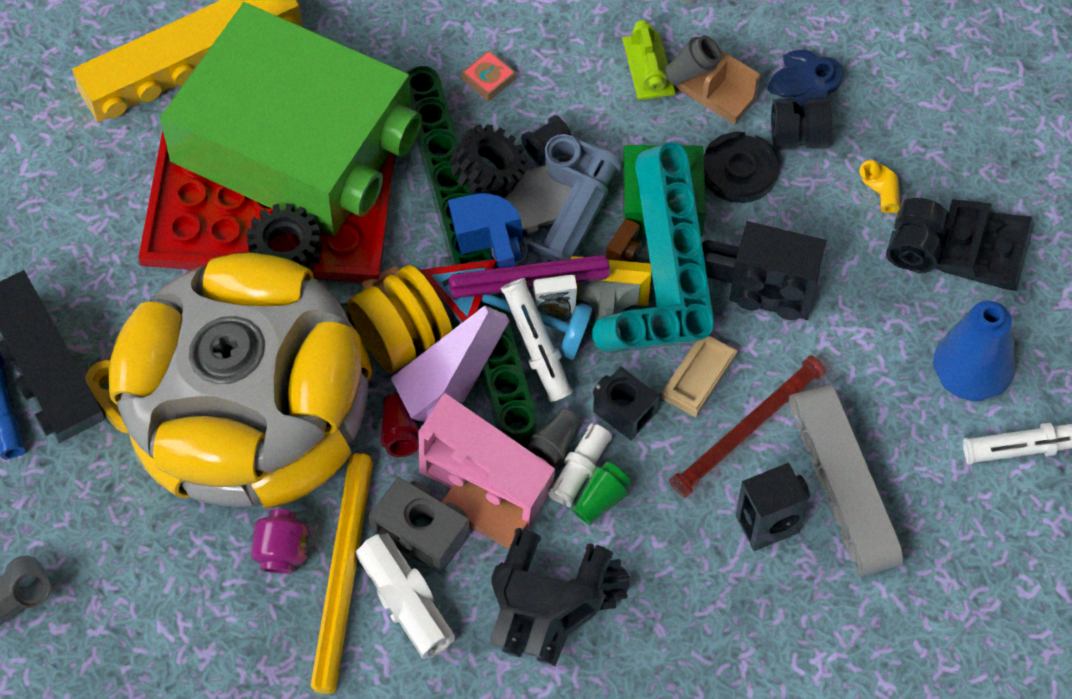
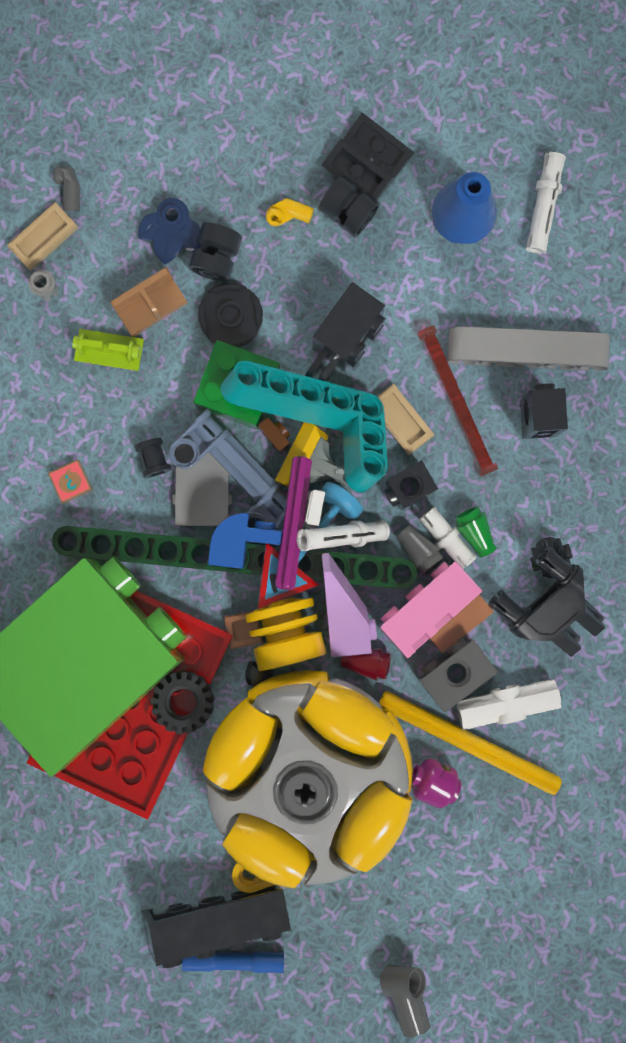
camera: 70 degrees left, 25 degrees up
(498, 150) = (164, 499): black tyre -> none
(695, 59) = (133, 313): dark grey cone -> none

